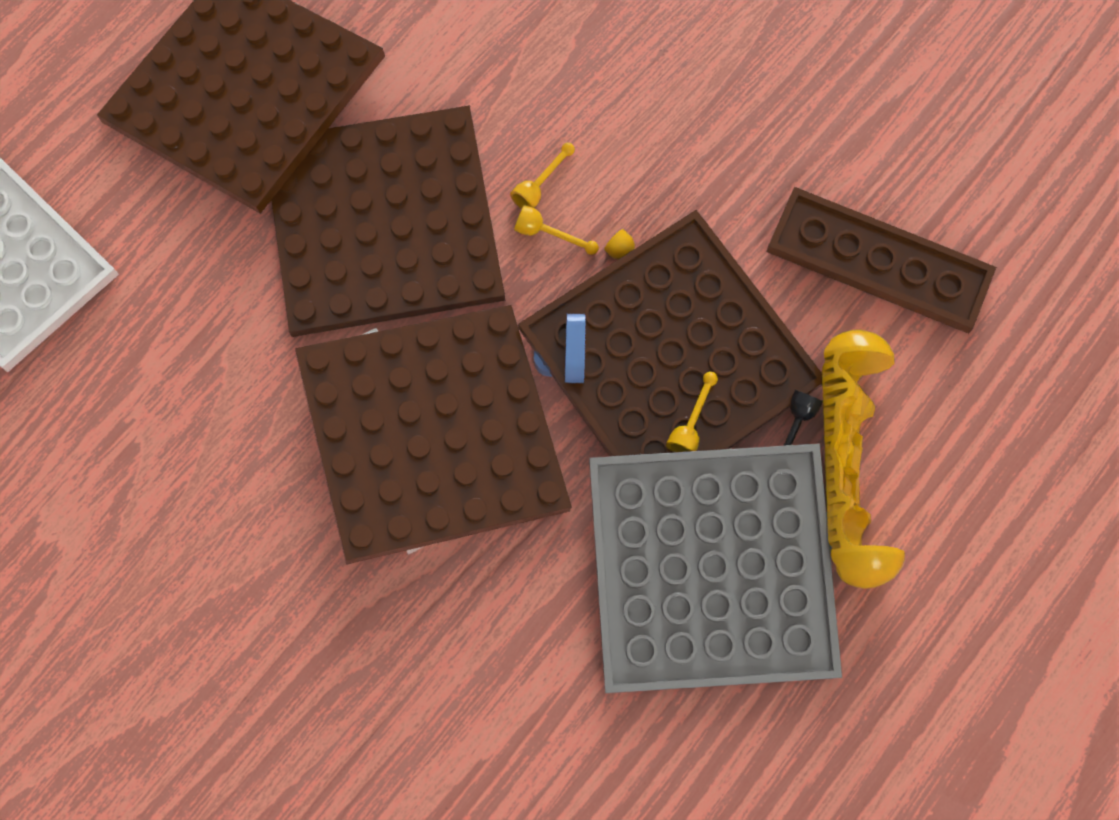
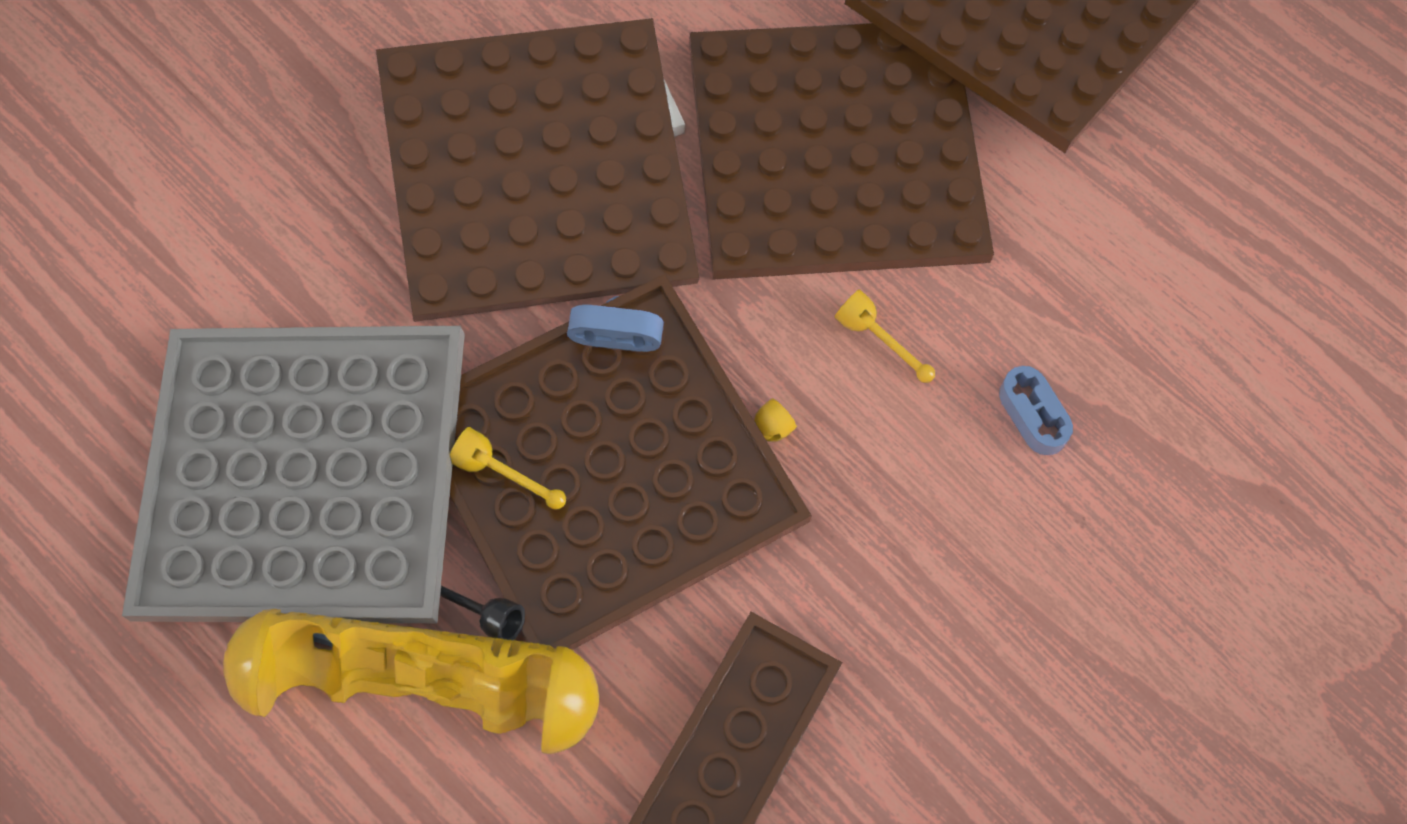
camera: 90 degrees right, 5 degrees down
(531, 222) = (817, 312): yellow hinge -> none
(586, 75) = (1040, 408): none -> medium blue beam

